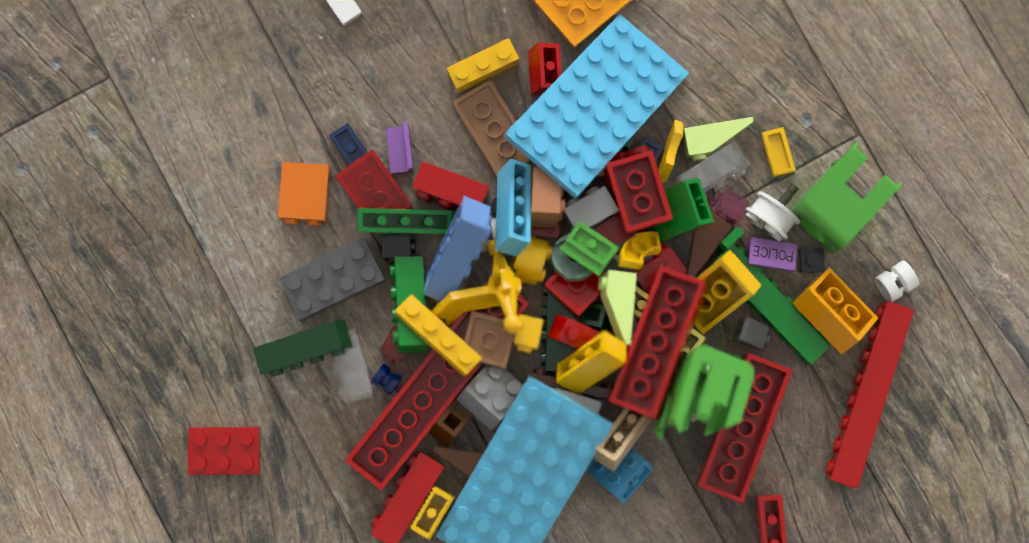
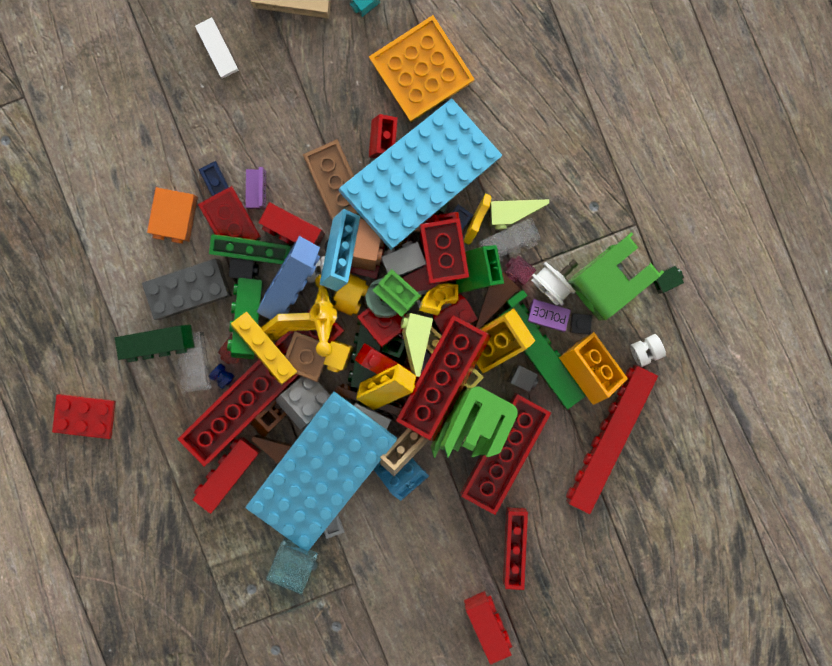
camera: 10 degrees right, 5 degrees up
(432, 512) = (244, 488): yellow brick -> none
(483, 66) = (332, 127): yellow brick -> none
(777, 152) = (566, 230): yellow tile -> none
(908, 194) = (669, 279): none -> dark green brick

